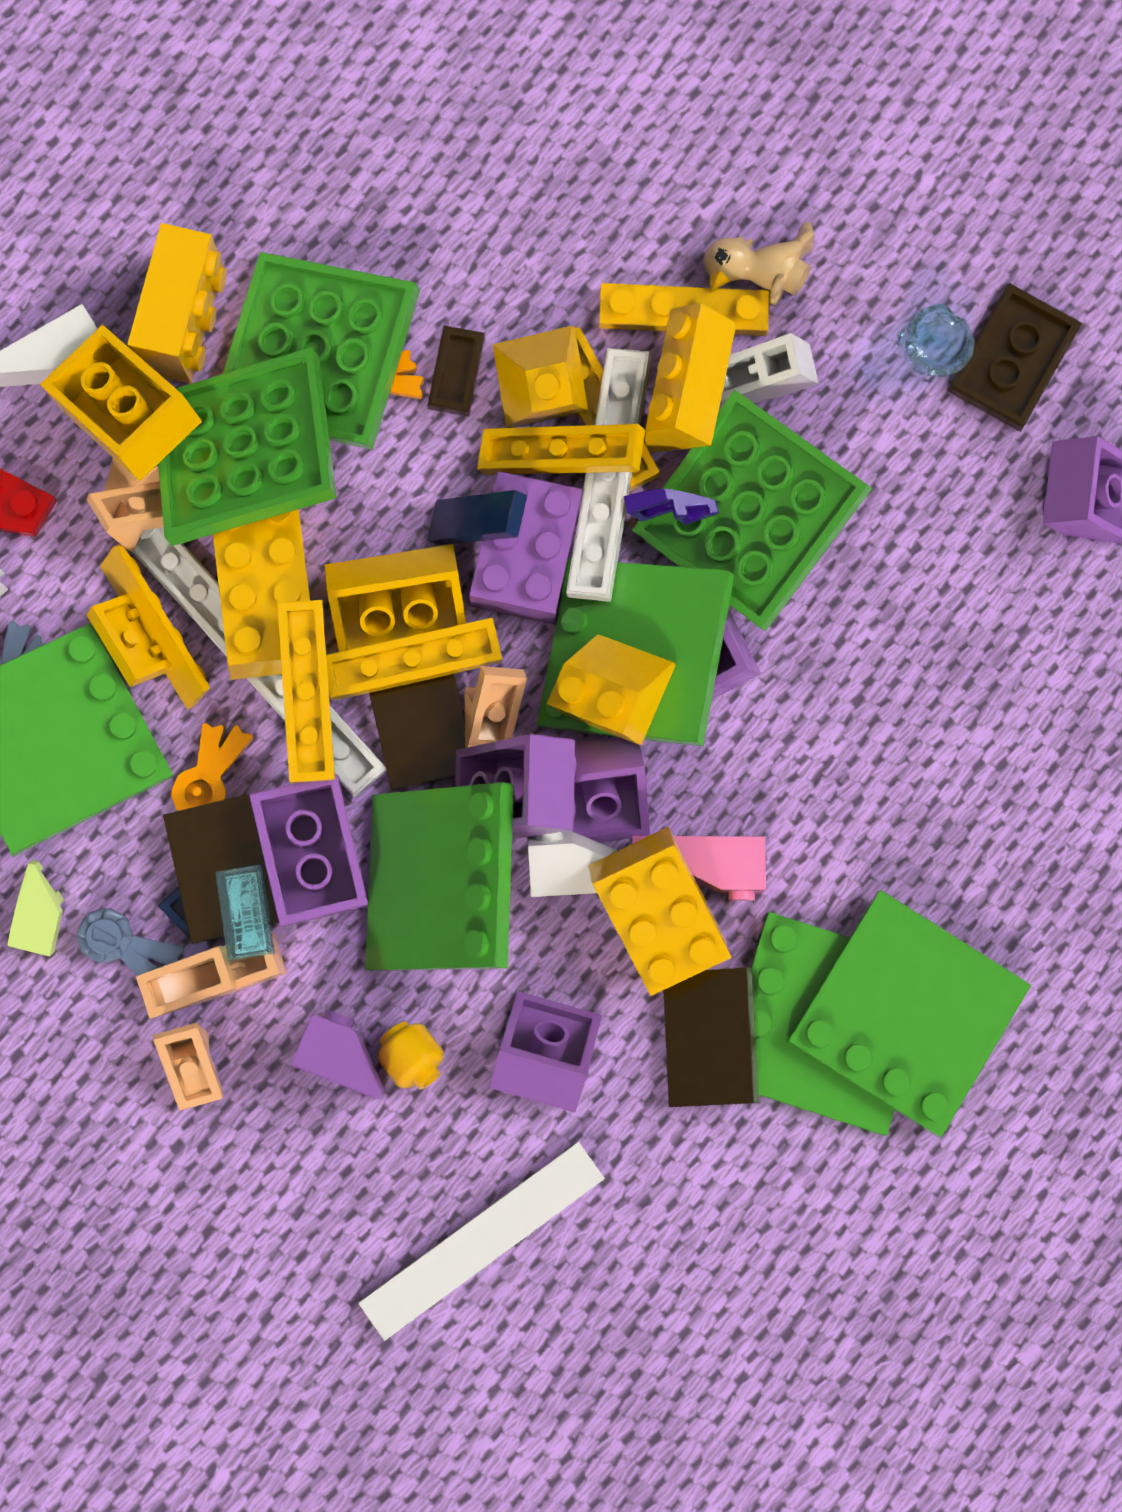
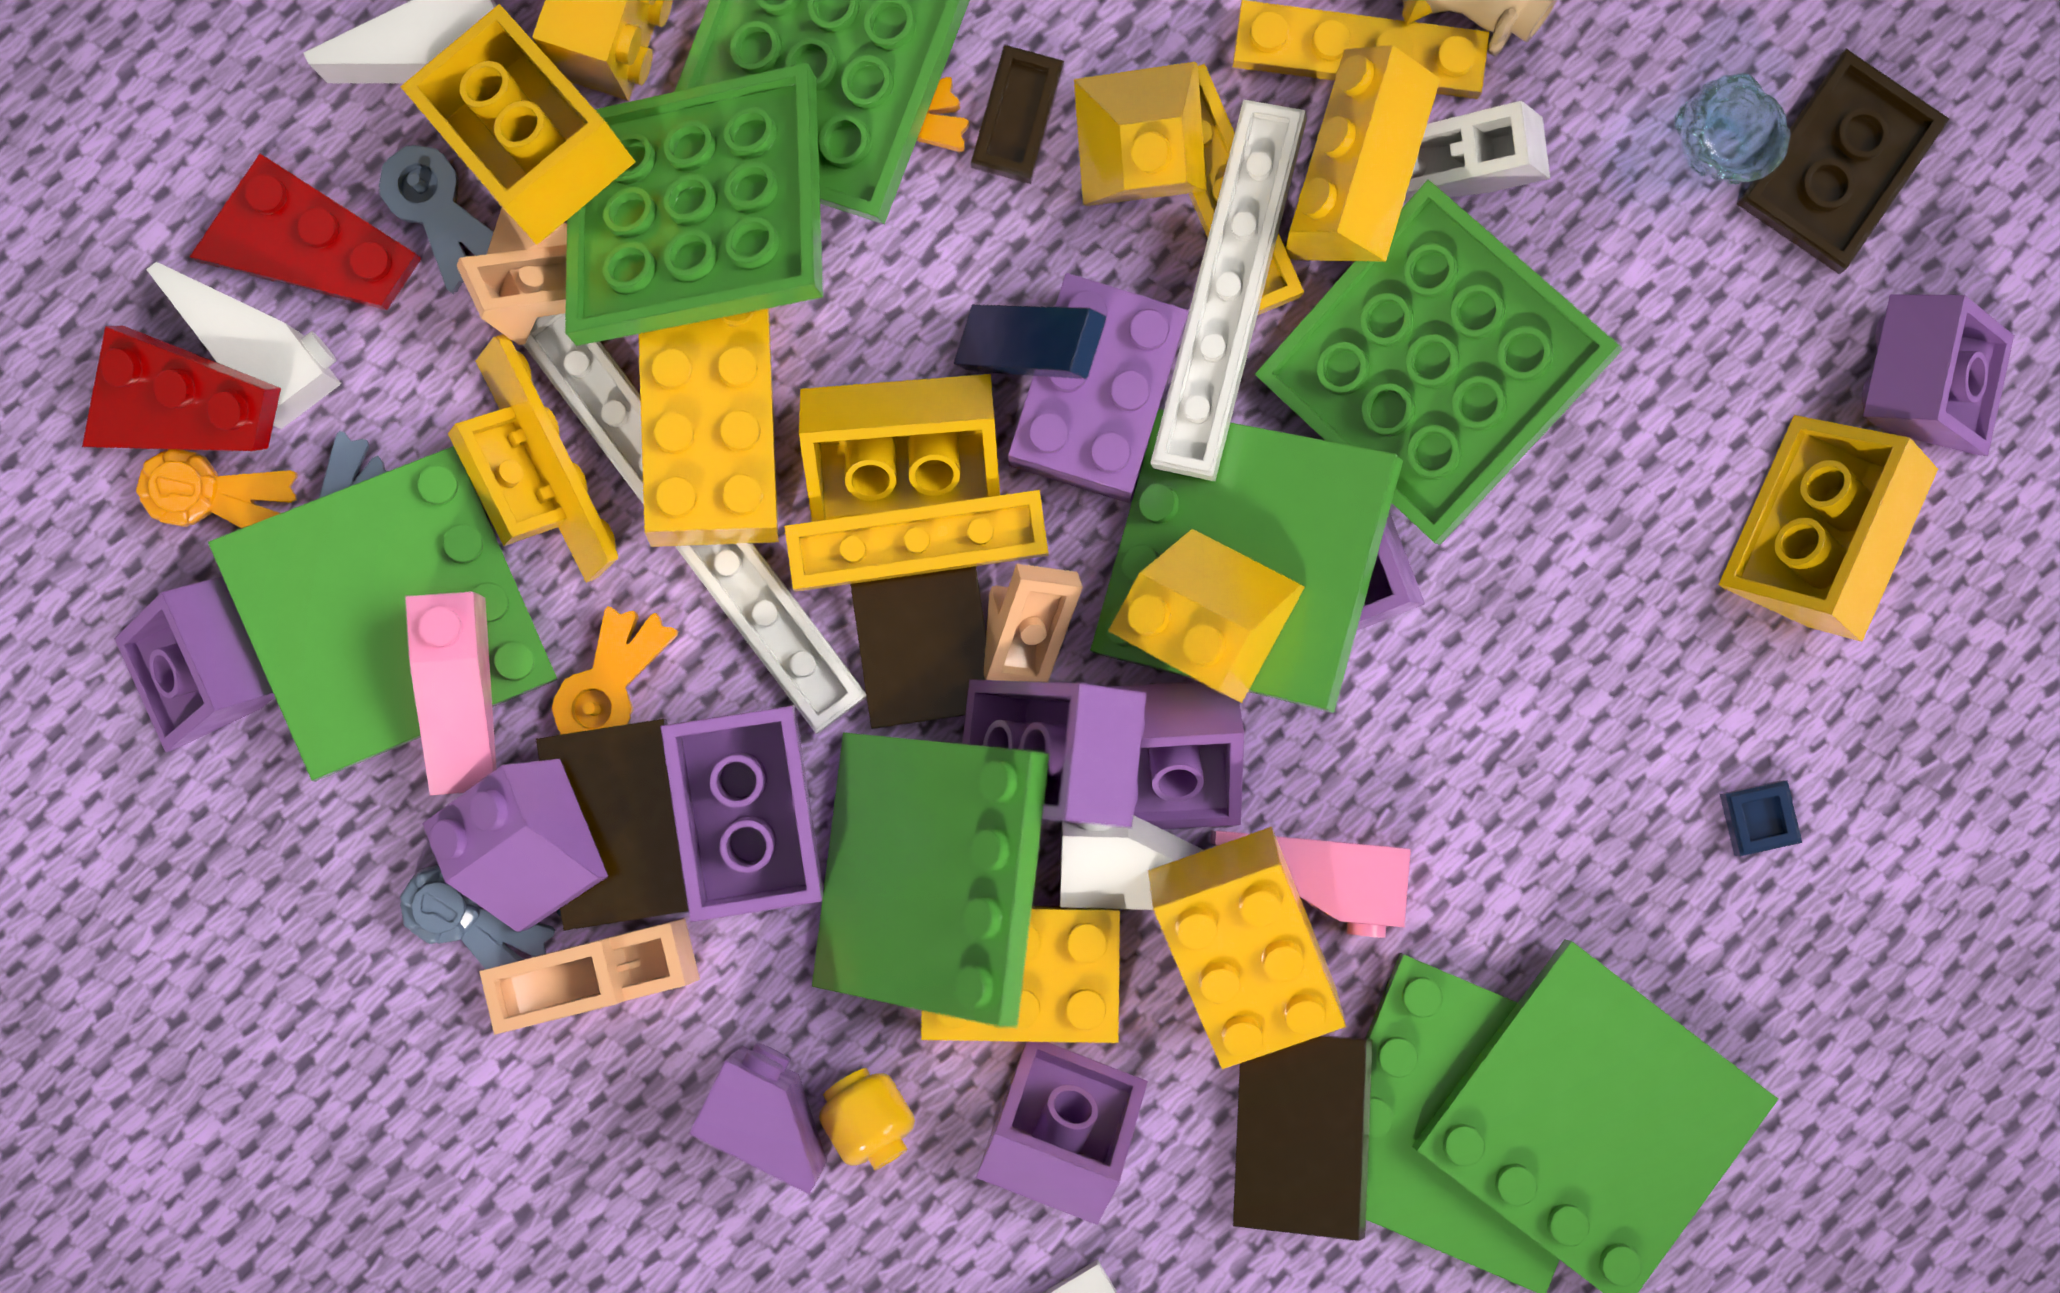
camera: 10 degrees right, 5 degrees up
(36, 914) = (345, 863): yellowish green slope -> none
(55, 453) = (423, 189): none -> sand blue piece
(105, 785) = (452, 688): none -> bright pink slope
(156, 885) = (517, 843): none -> medium lavender slope
(189, 1065) = (546, 1107): light nougat slope -> none
(245, 912) = (643, 895): clear light blue tile -> none
(305, 691) = (754, 582): yellow plate -> none
(538, 952) = (1066, 985): none -> yellow brick
(561, 449) = (1164, 248): yellow plate -> none
(657, 502) = (1338, 348): dark purple slope -> none
(1003, 799) = (1760, 818): none -> dark blue tile
(1029, 598) = (1830, 525): none -> yellow slope

